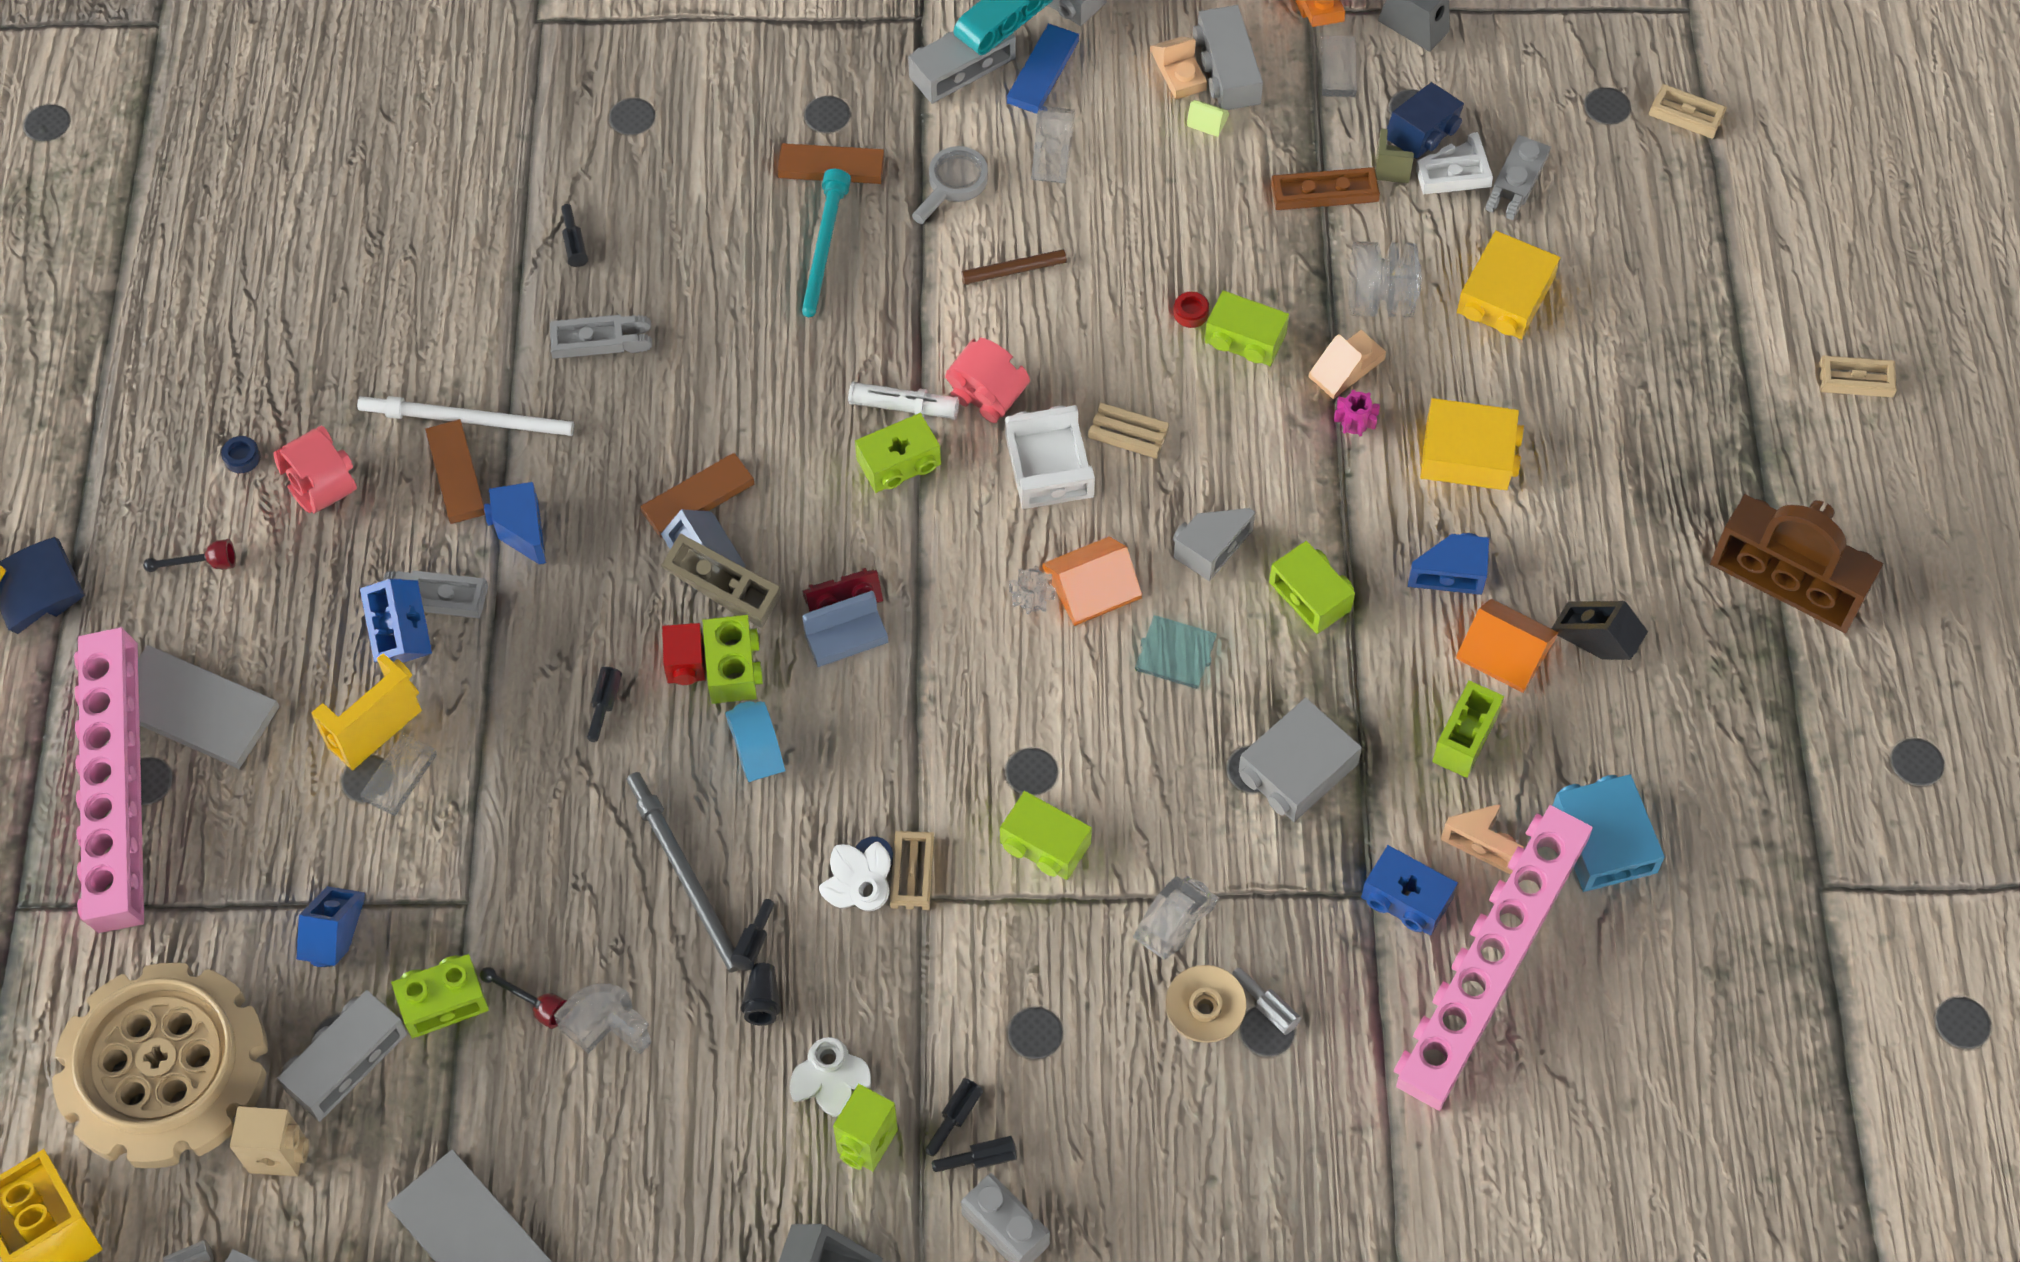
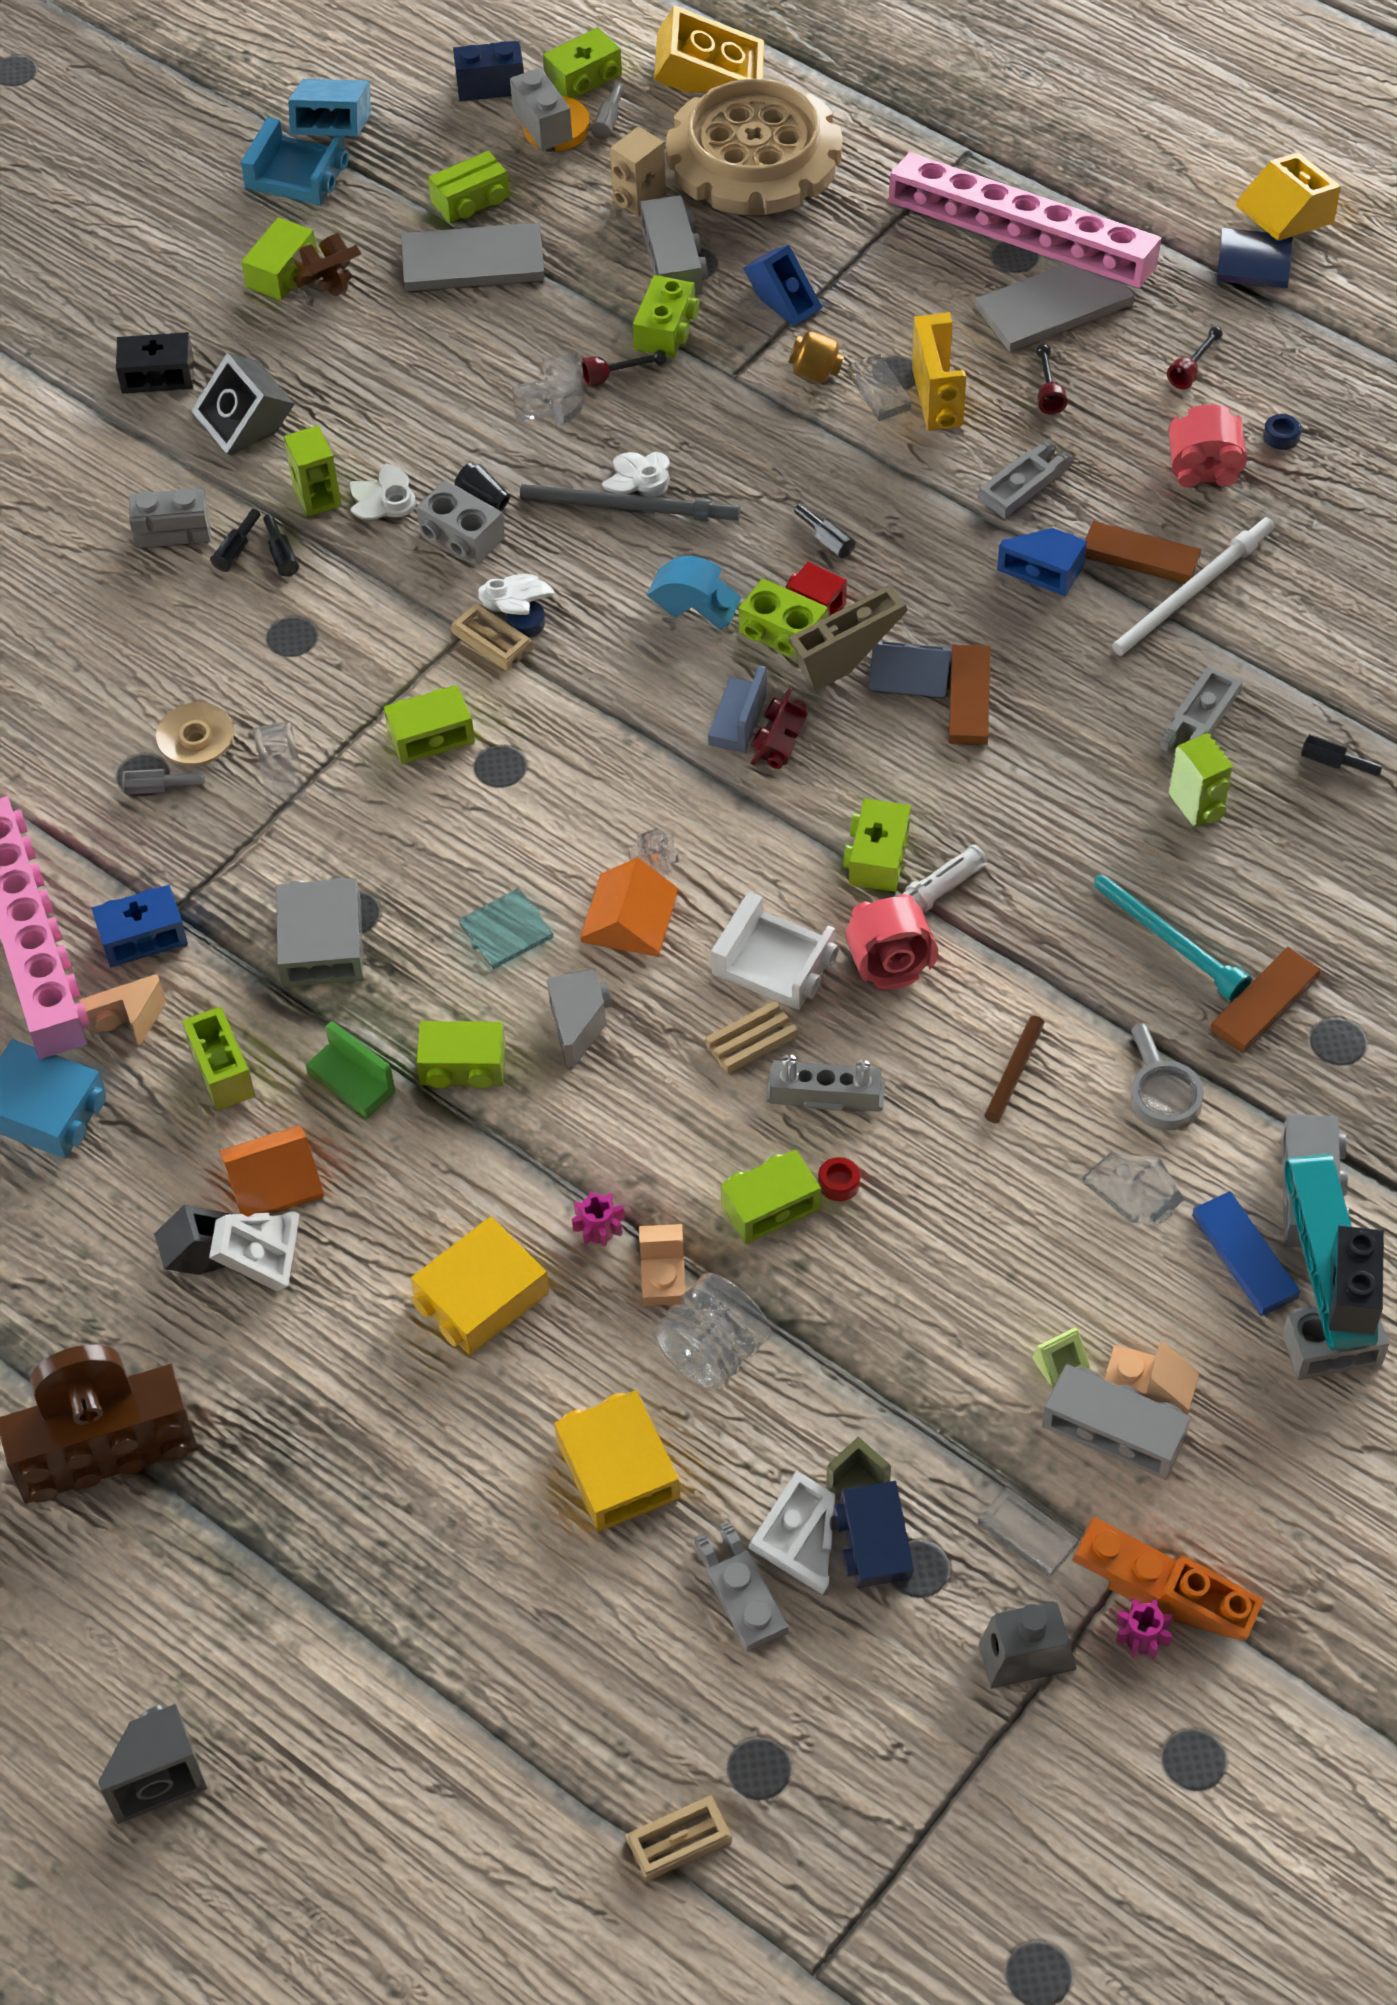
camera: 130 degrees right, 5 degrees down
(318, 632) = (1051, 395): none -> dark red hinge
(396, 620) = (1006, 424): blue brick -> none
(406, 835) = (815, 357): none -> pearl gold head
(644, 891) = (640, 474): none -> white plate
(680, 280) = (1200, 780): none -> lime brick
(752, 939) = (531, 506): black axle -> none
(810, 978) = (460, 522): none -> light grey brick
(1130, 357) = (825, 1085): none -> light grey piece
(1325, 188) = (882, 1395): dark orange tile -> none
(1390, 650) = (352, 1072): none -> bright green panel
(1453, 565) = (374, 1177): blue slope -> none
(1575, 586) = (257, 1246): none -> white wing
(1858, 380) = (244, 1721): tan tile -> none
(1944, 364) = (151, 1765): none -> dark grey slope

